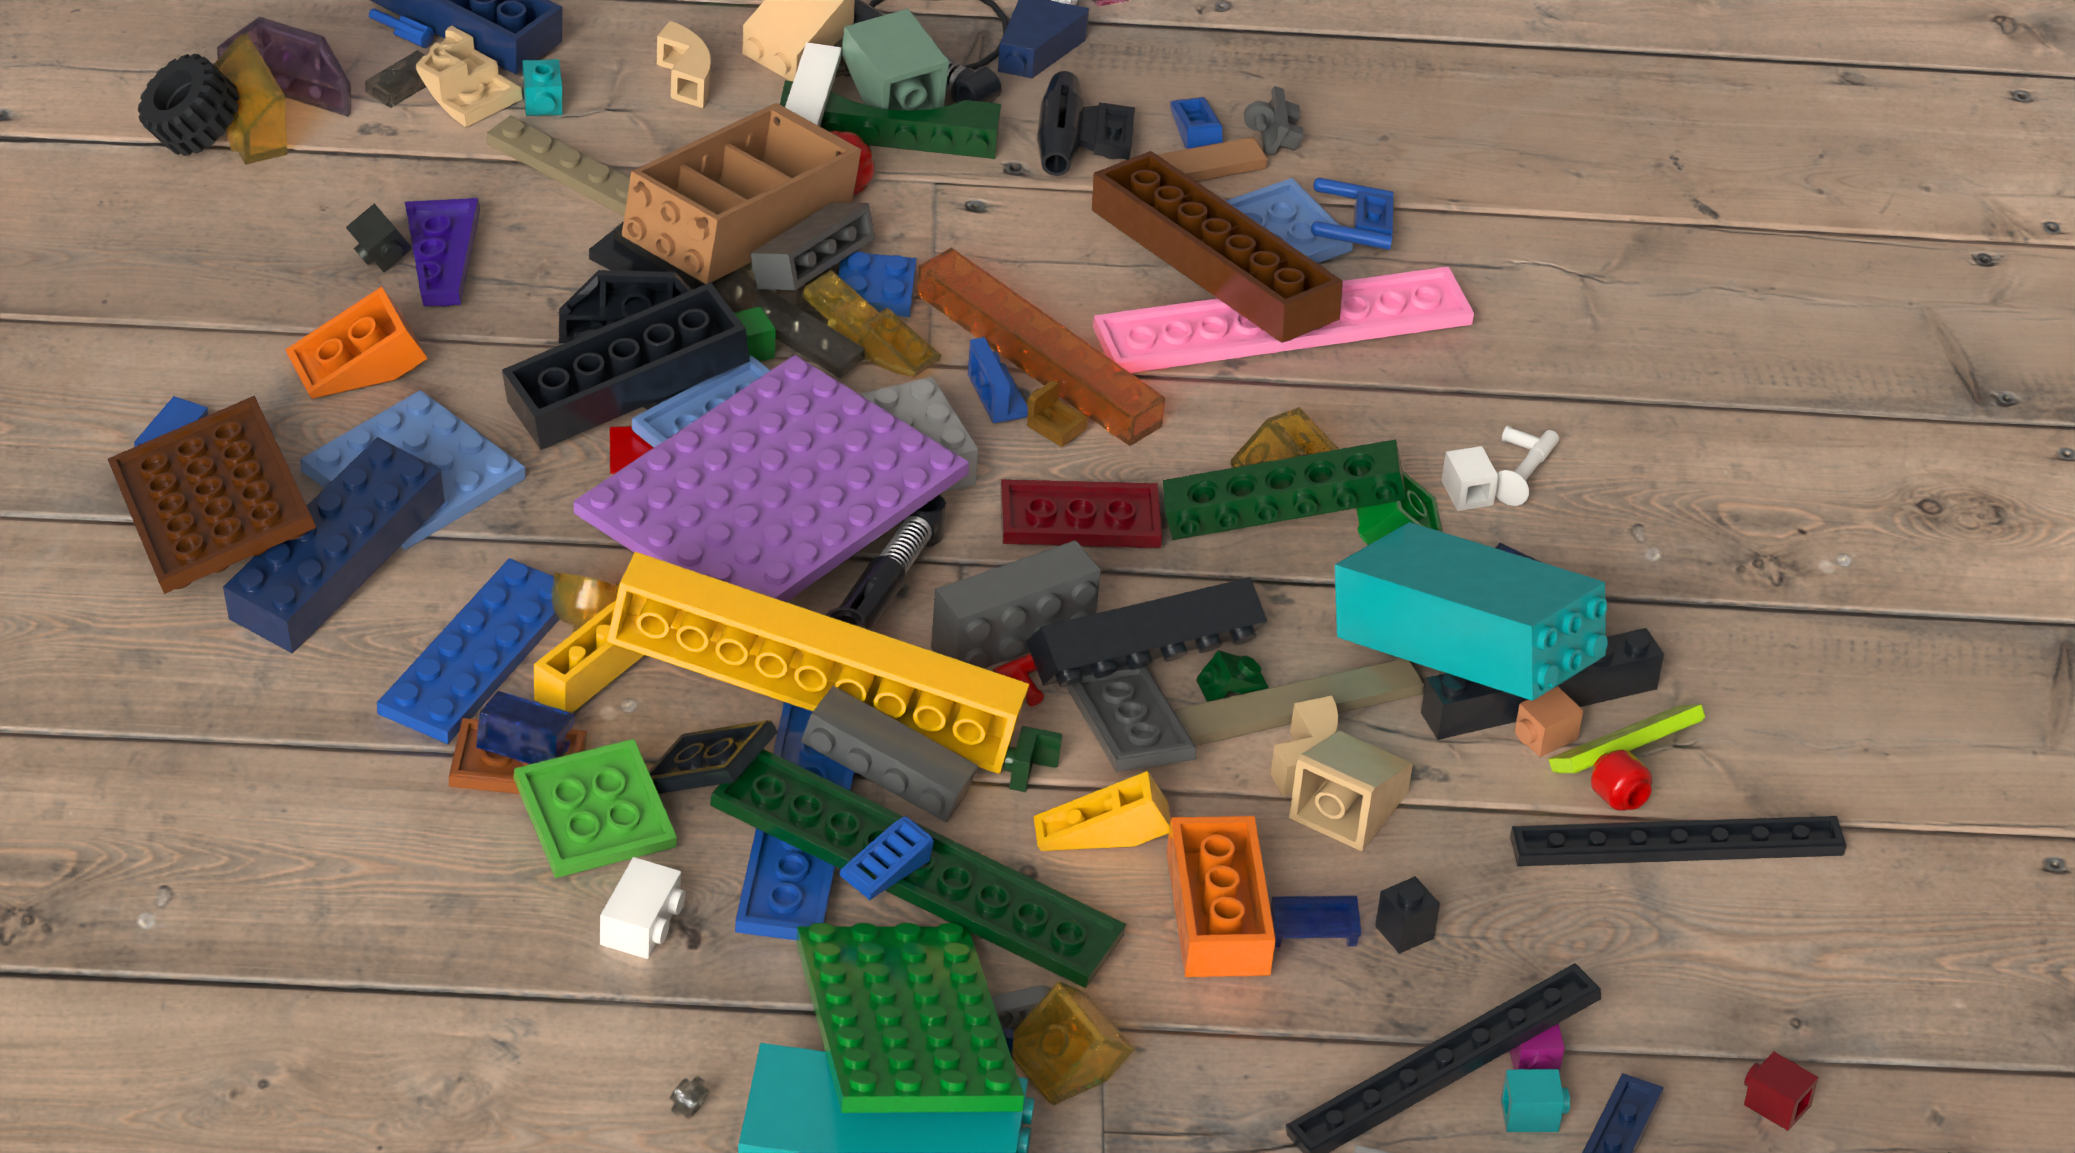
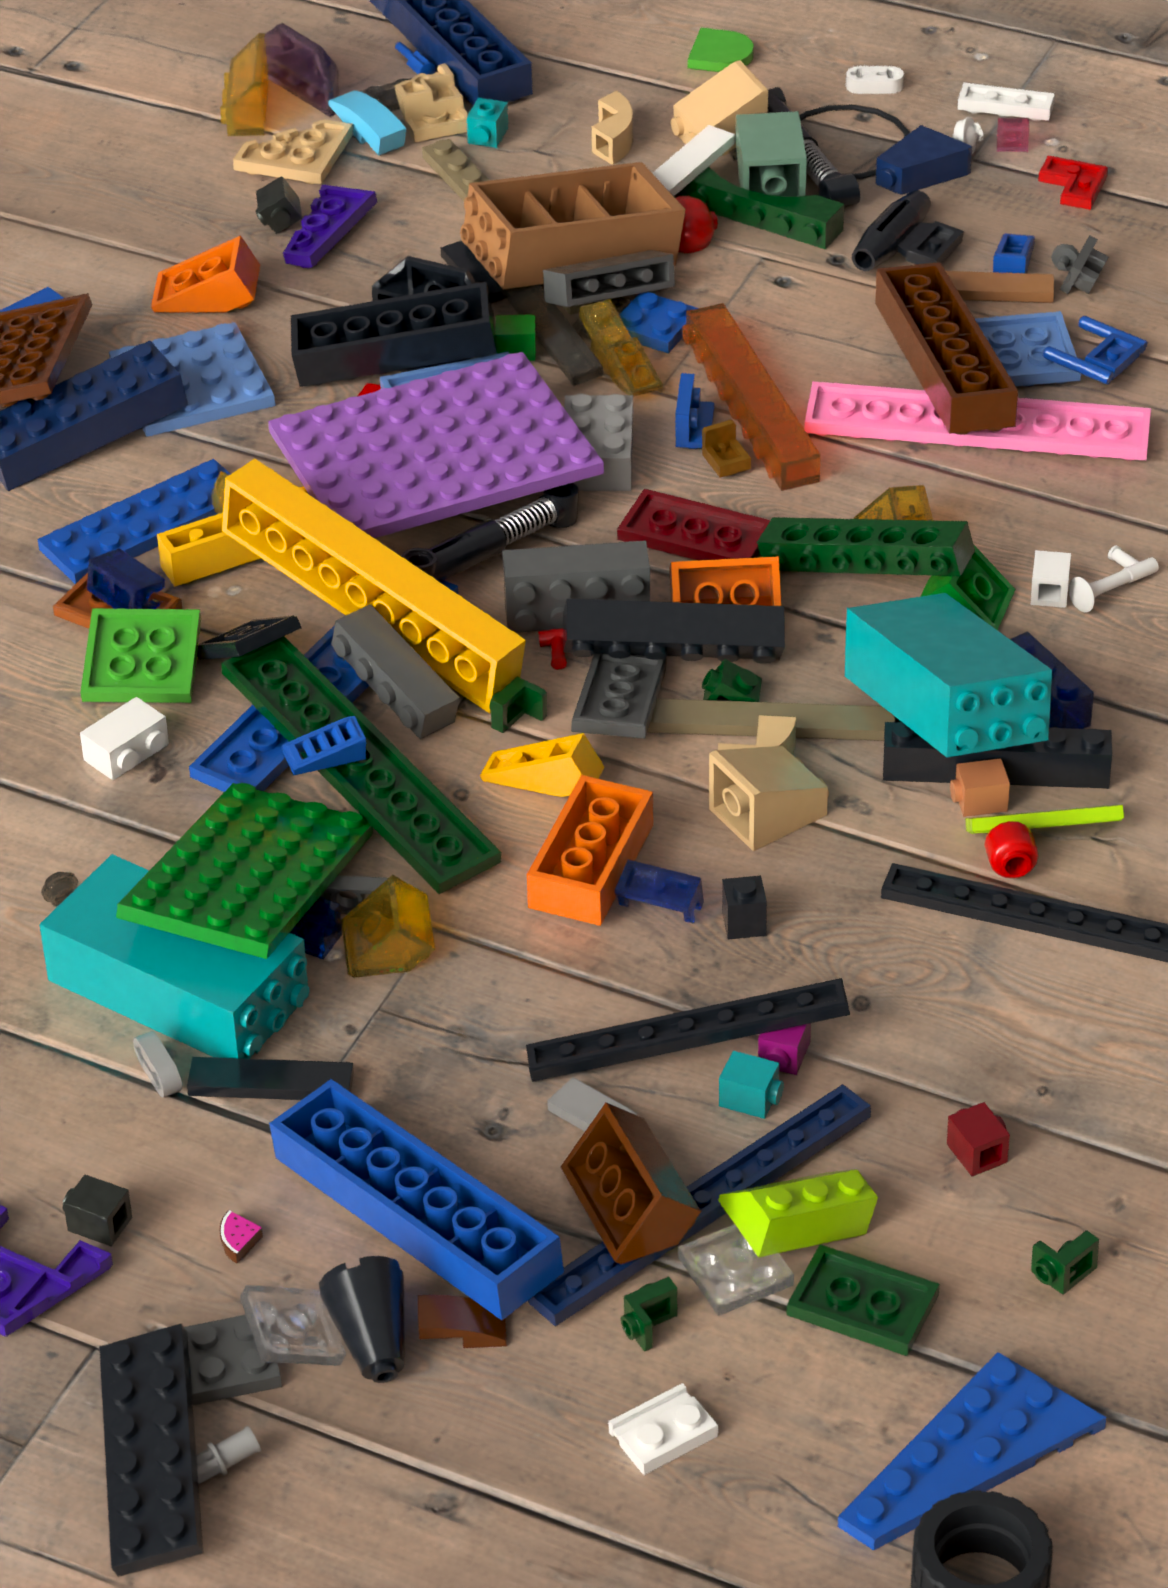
camera: 30 degrees right, 0 degrees up
(188, 104) = (196, 79): black tyre -> none
(347, 171) = (296, 154): none -> tan plate
(408, 112) = (370, 121): none -> medium azure slope
(1161, 568) = (726, 581): none -> orange slope
(1208, 19) = (1080, 180): none -> red tile

